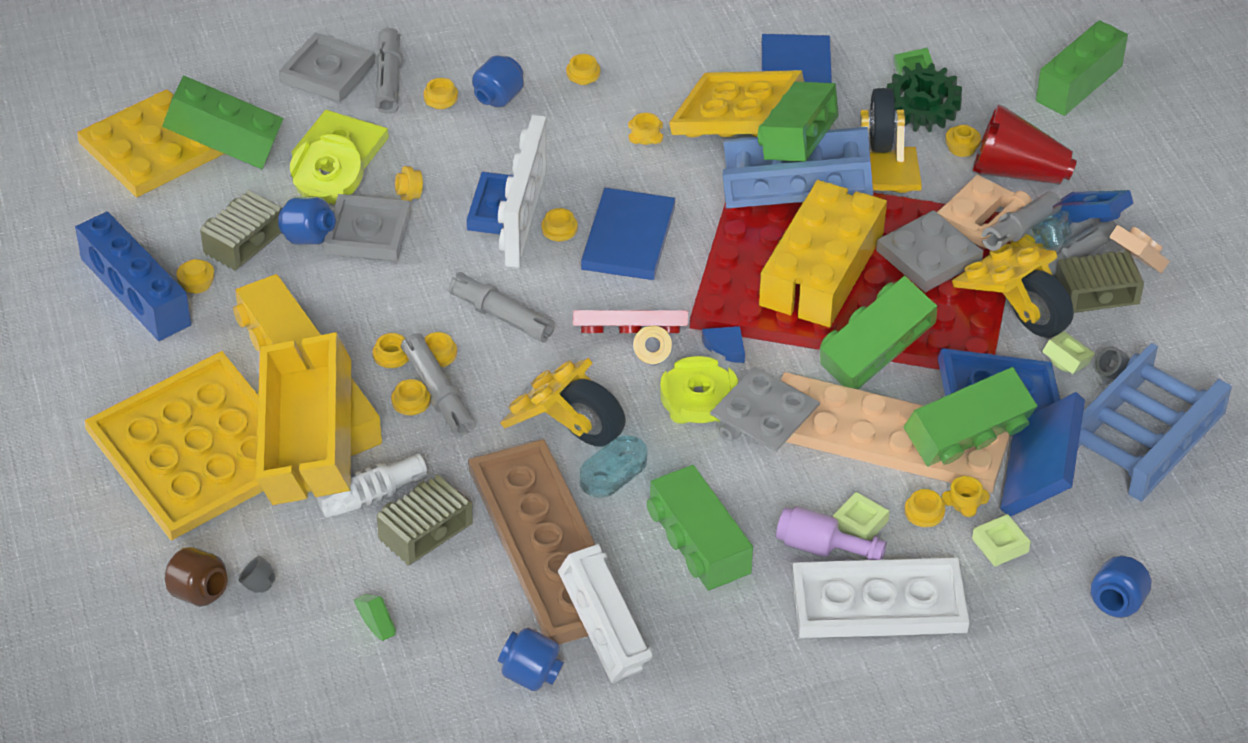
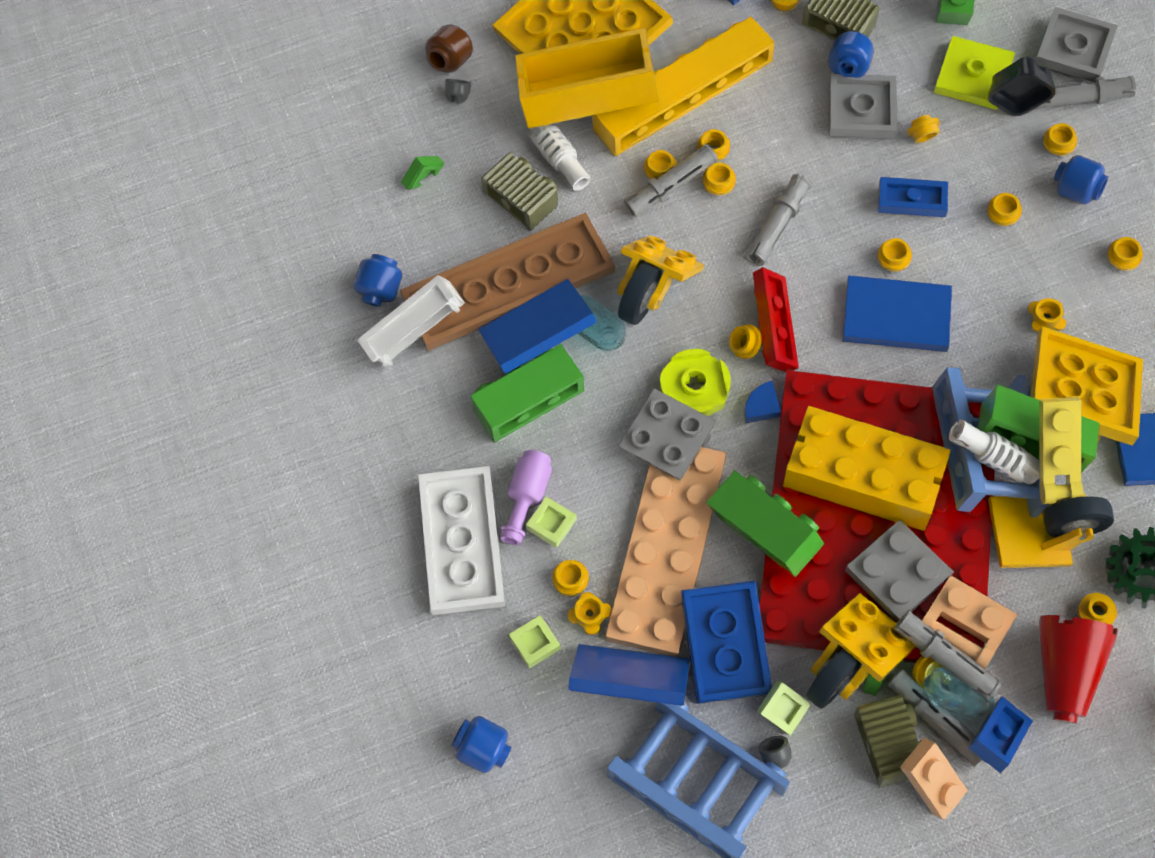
camera: 90 degrees right, 20 degrees up
(311, 157) = (928, 77): neon yellow plate -> none
(383, 97) = (1021, 87): none -> black piece
(511, 140) = (1004, 209): none -> yellow plate
(523, 191) = (916, 212): white plate -> none
(622, 503) = (537, 326): none -> blue tile
(827, 143) = (996, 452): none -> white hinge
(833, 96) = (1060, 448): none -> light yellow plate
(970, 418) = (654, 603): bright green brick -> none

